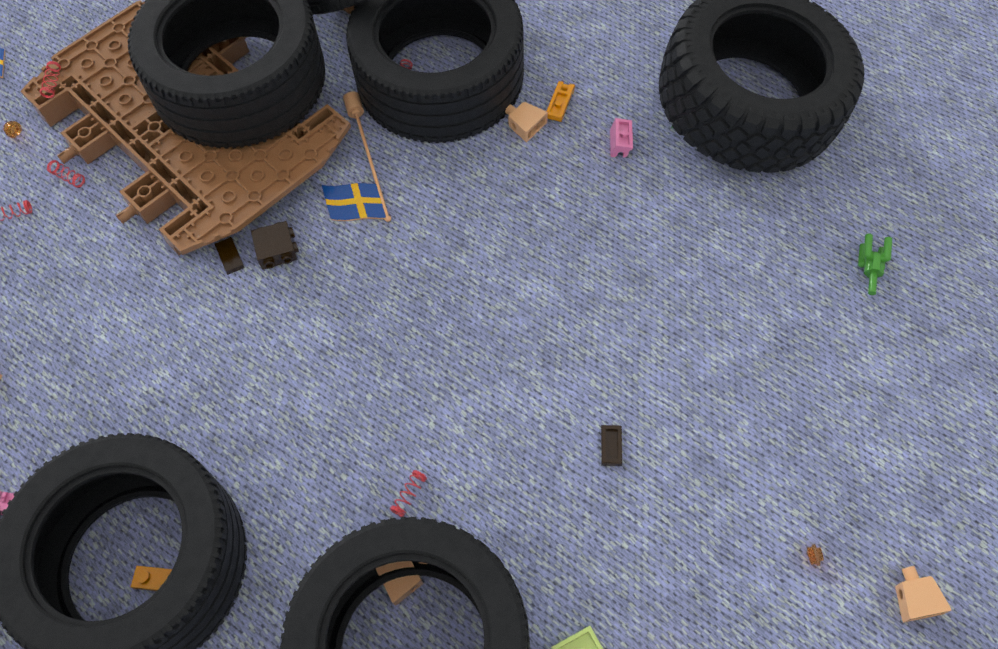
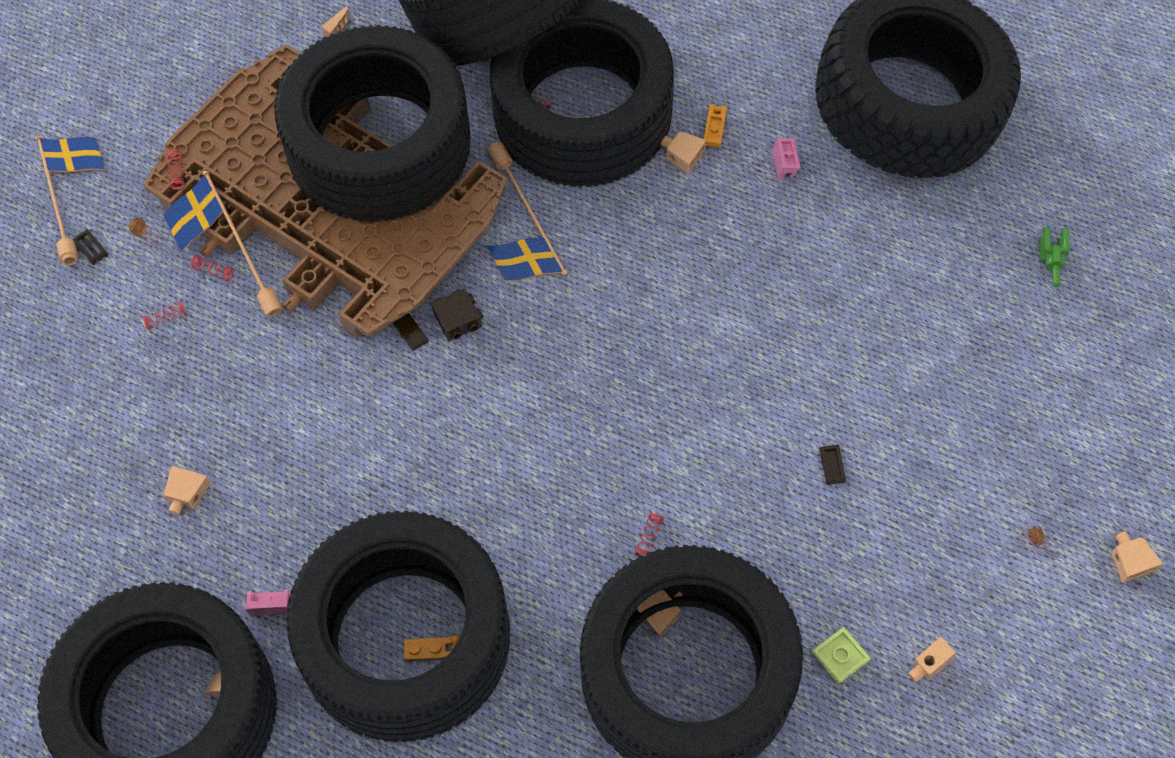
camera: 10 degrees left, 0 degrees up
(57, 123) = (195, 214): none -> flag

